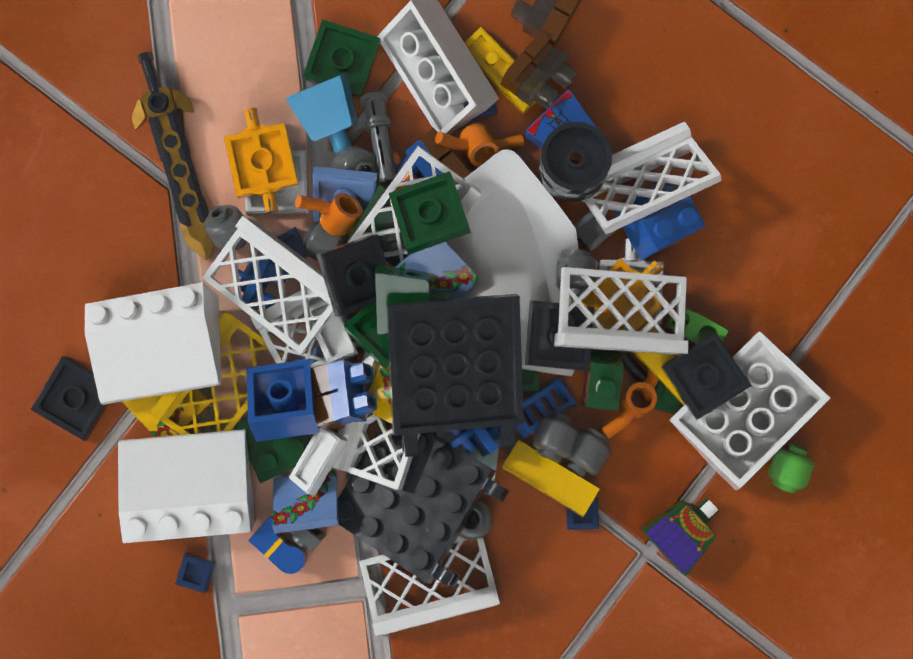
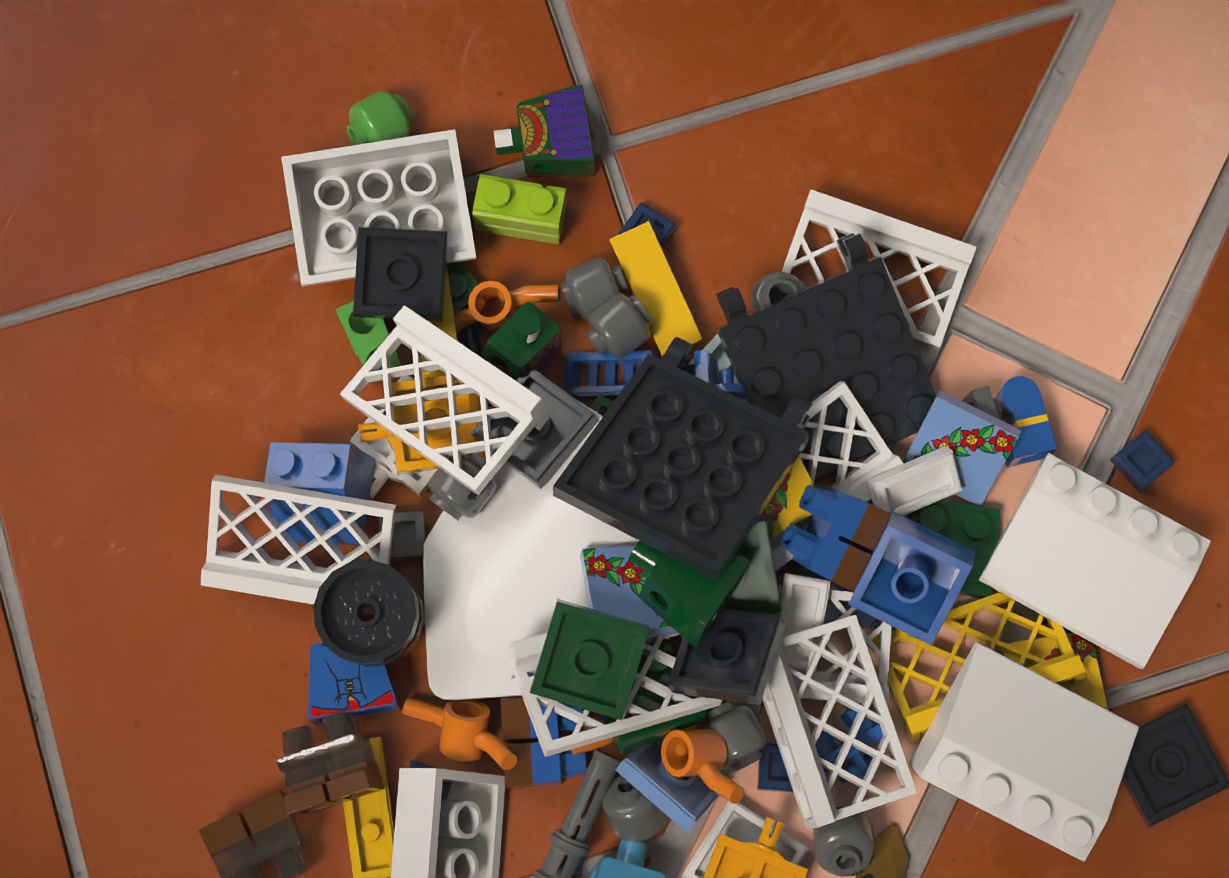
camera: 150 degrees left, 10 degrees down
(667, 471) = (519, 209): none -> lime brick

